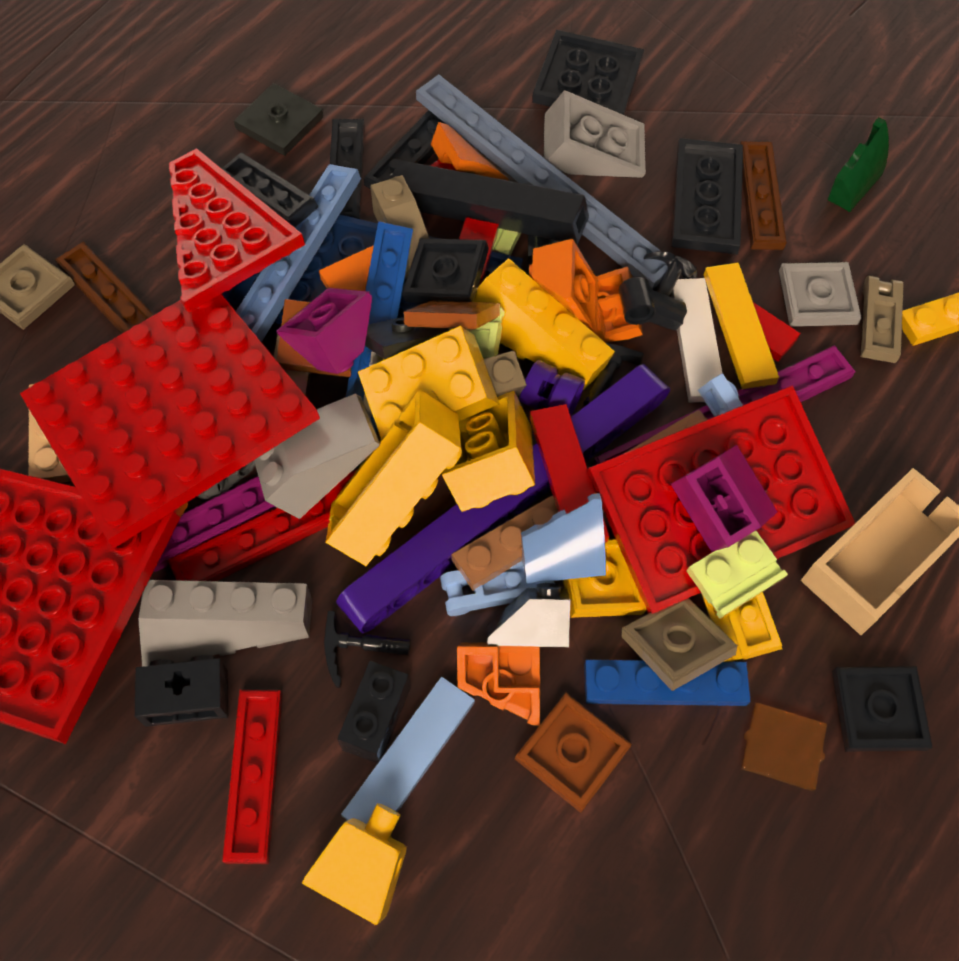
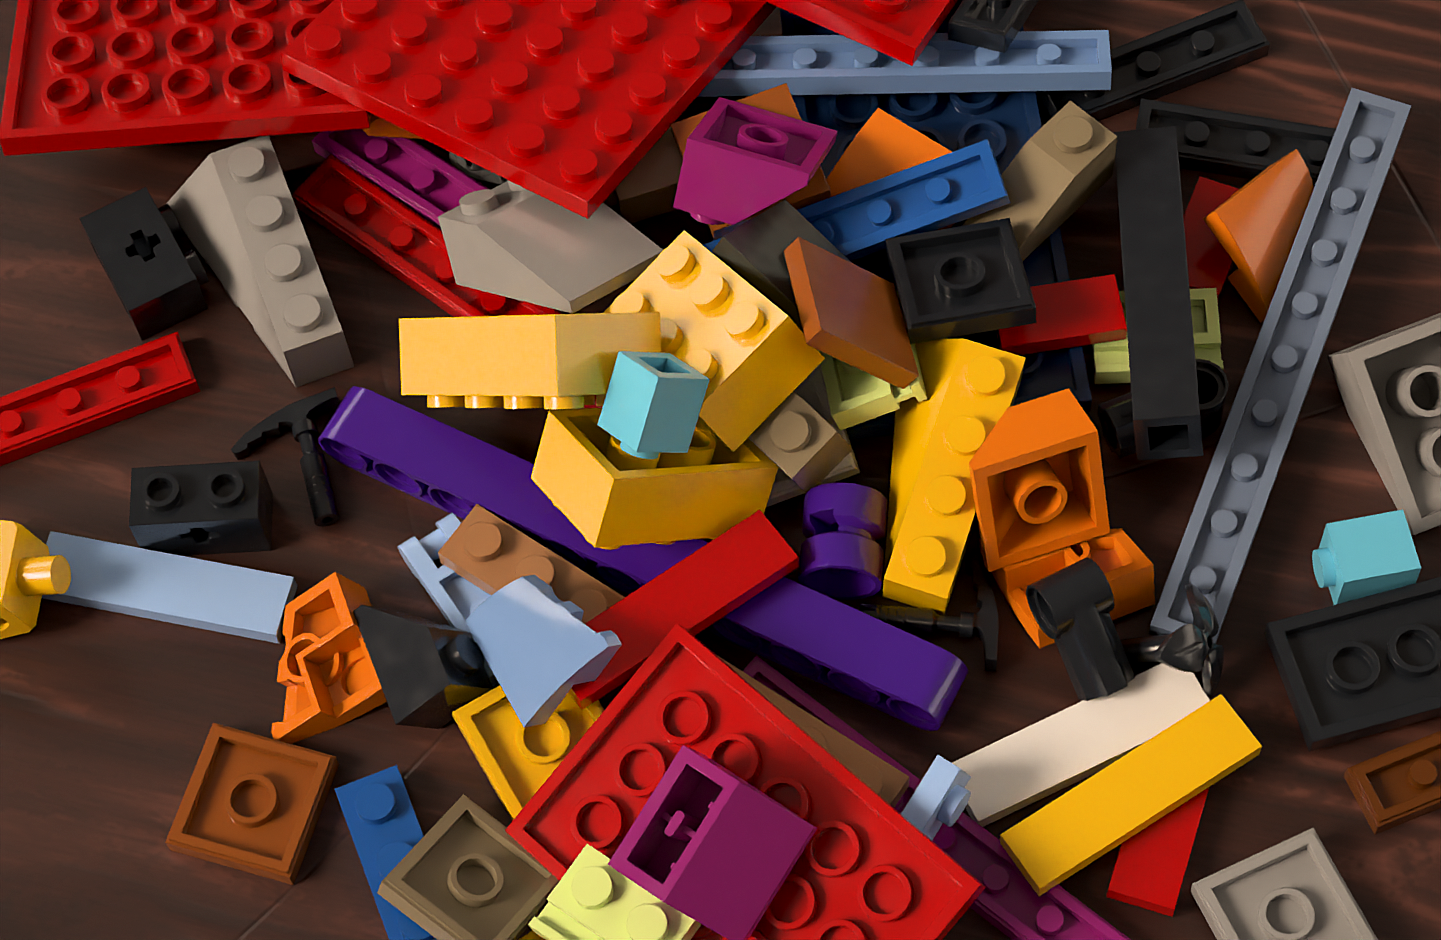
camera: 75 degrees right, 0 degrees up
(475, 413) = (652, 403): none -> medium azure brick
(656, 190) = (1366, 556): none -> medium azure brick

